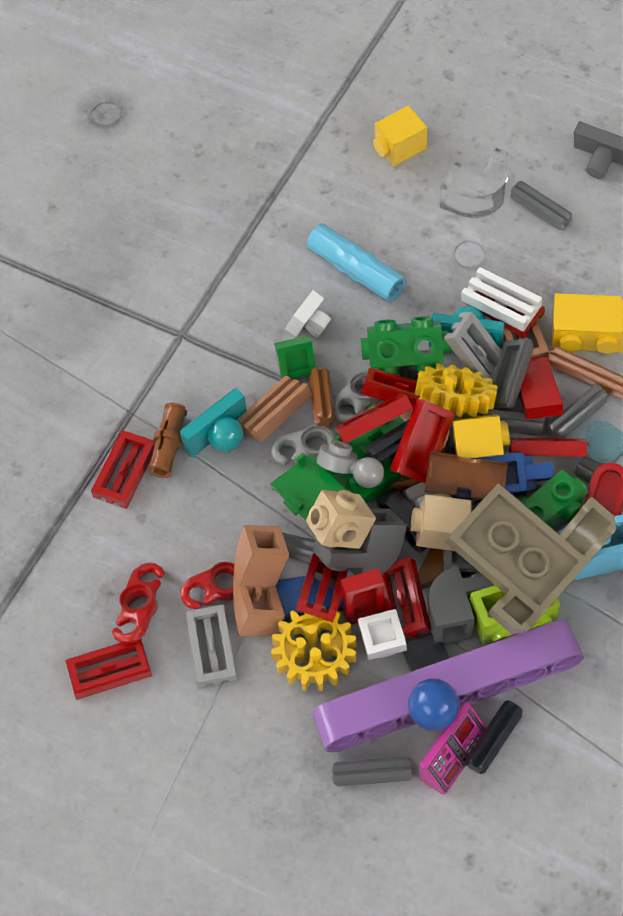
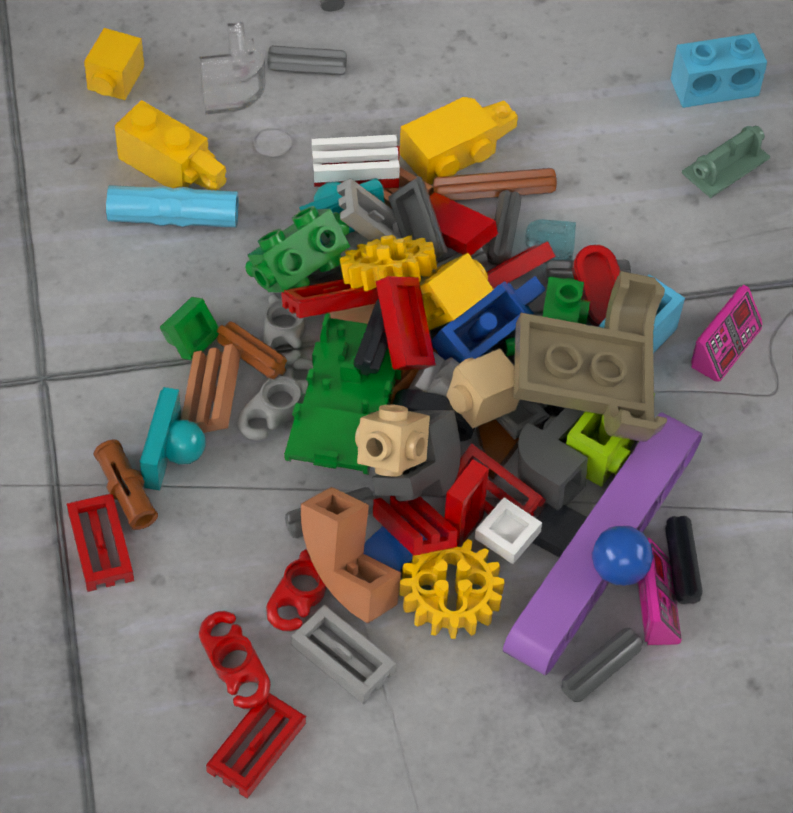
camera: 45 degrees left, 5 degrees down
(309, 316) = (169, 282): white tile -> none
(340, 459) = (334, 386): light grey plate -> none
(373, 417) = (340, 328): red tile -> none
(382, 218) = (167, 149): none -> yellow hinge
(451, 472) = (463, 334): dark orange piece -> none

